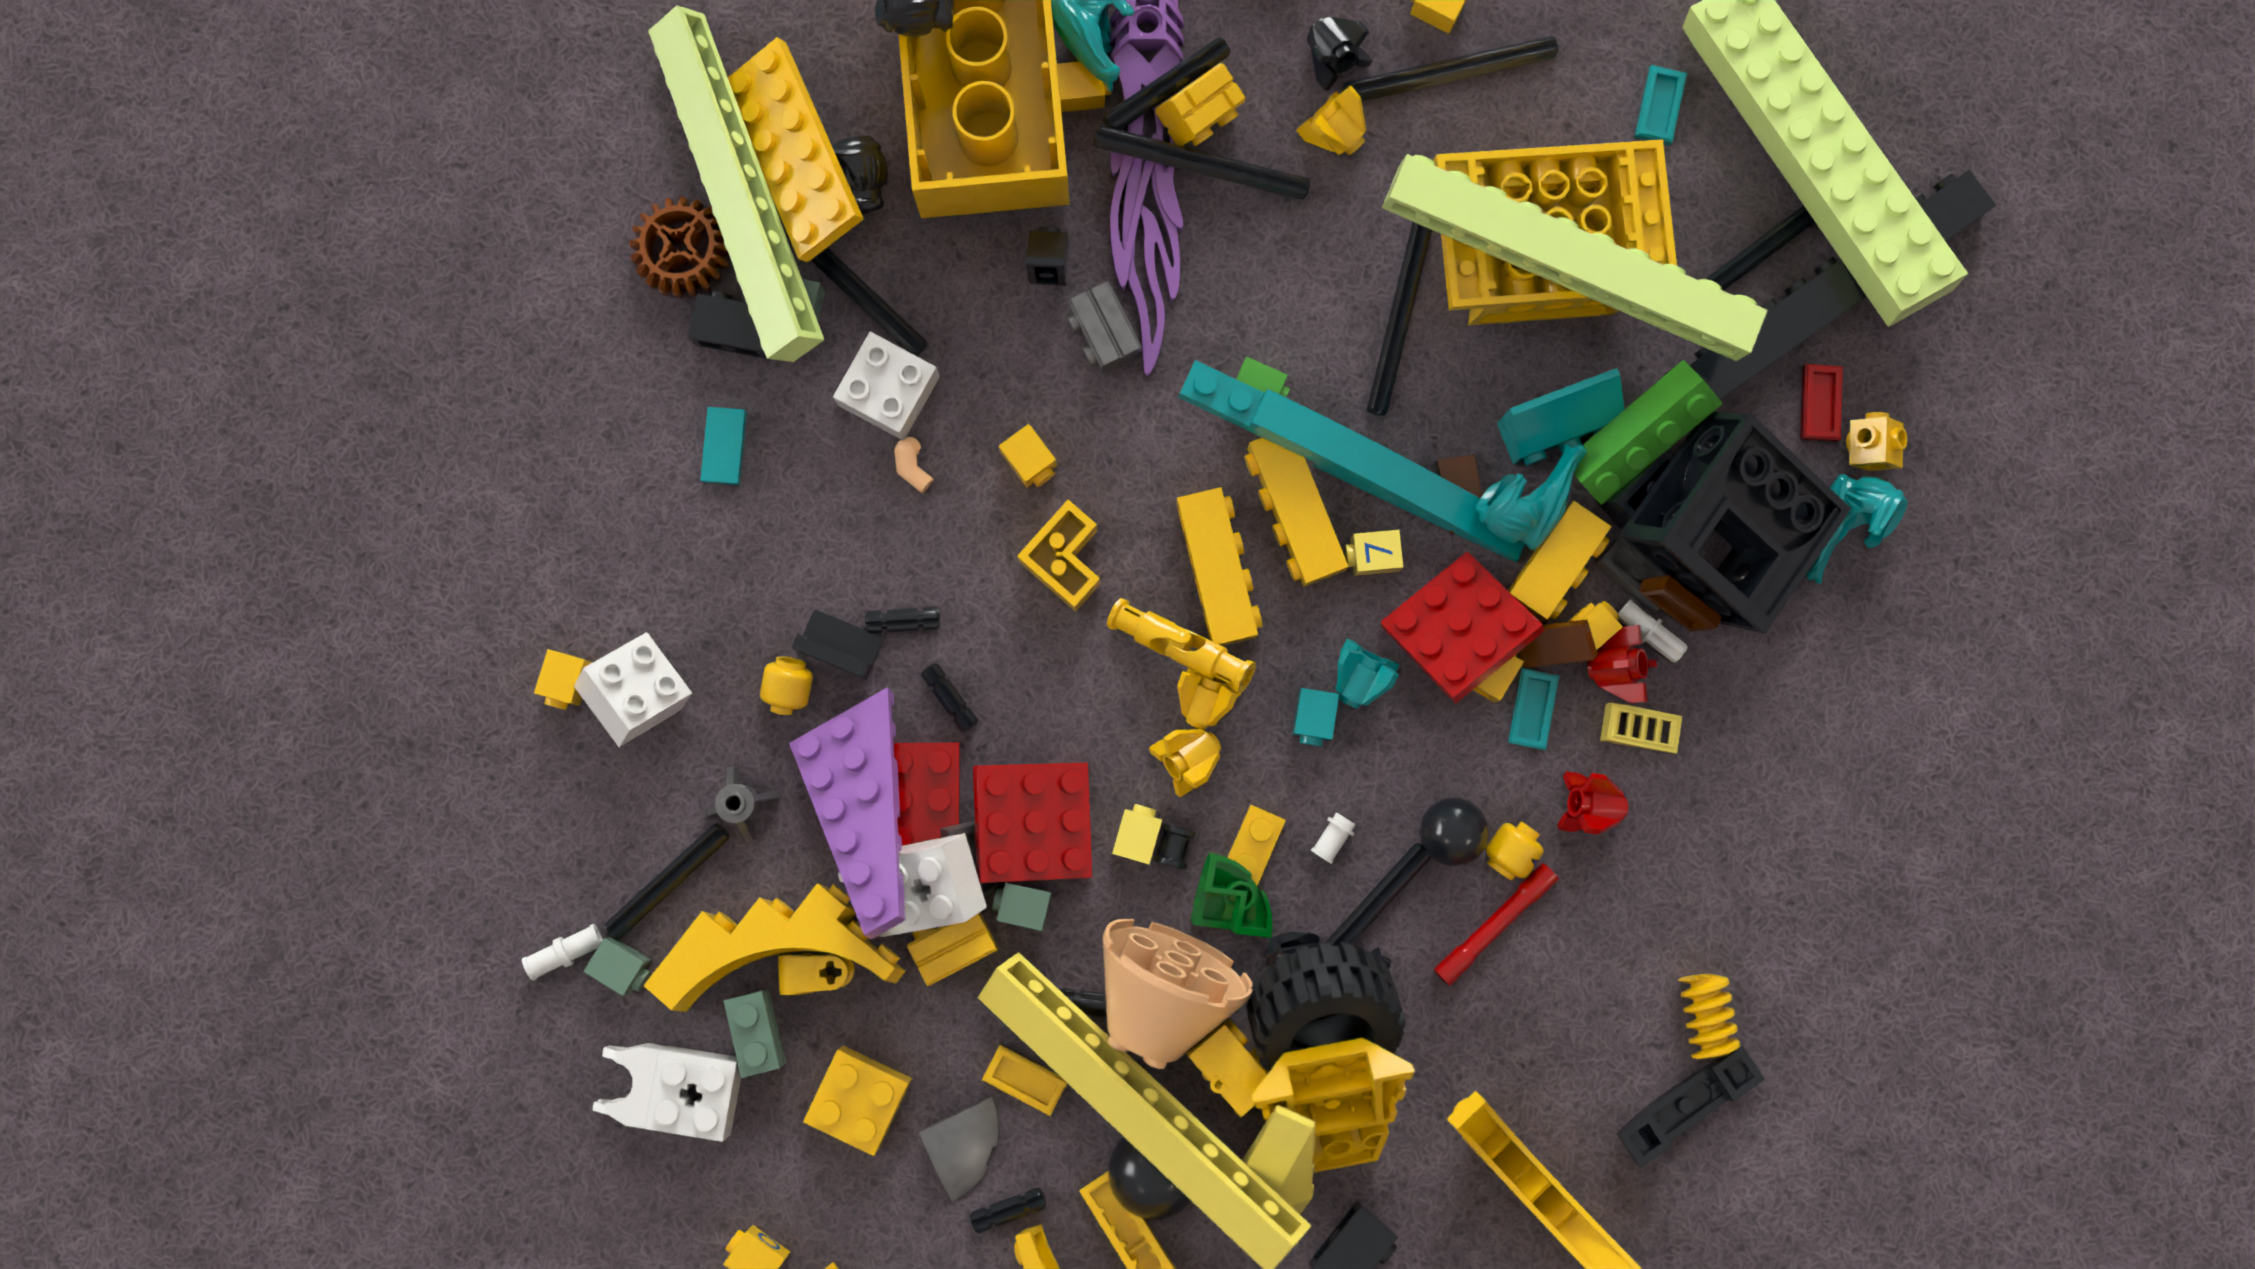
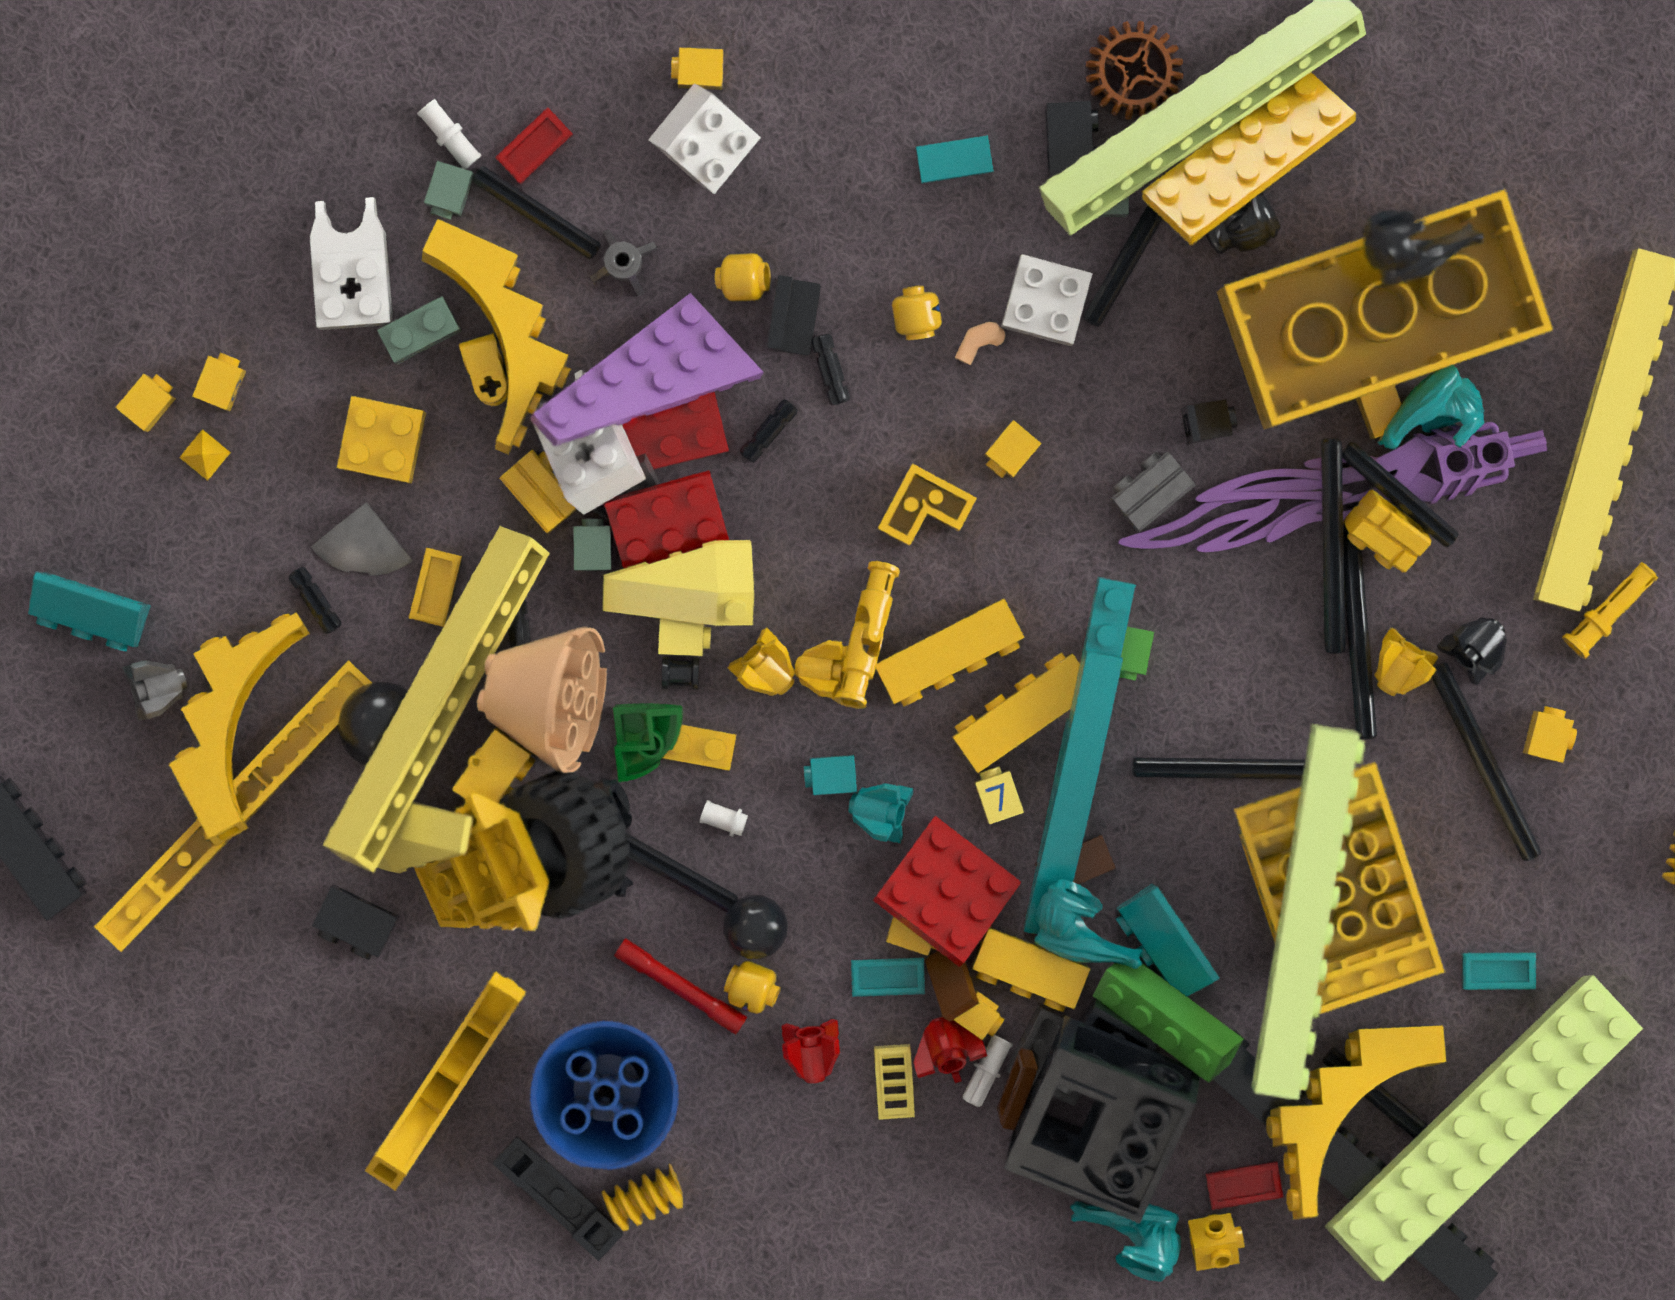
camera: 80 degrees right, 5 degrees up
(598, 867) = (534, 145): none -> red tile
(867, 518) = (916, 313): none -> yellow head
(1089, 805) = (696, 587): none -> light yellow wedge
(1302, 163) = (1358, 640): none -> black axle
(1603, 1033) = (599, 1128): none -> blue cone
(1792, 316) = (1334, 1092): none -> yellow arch

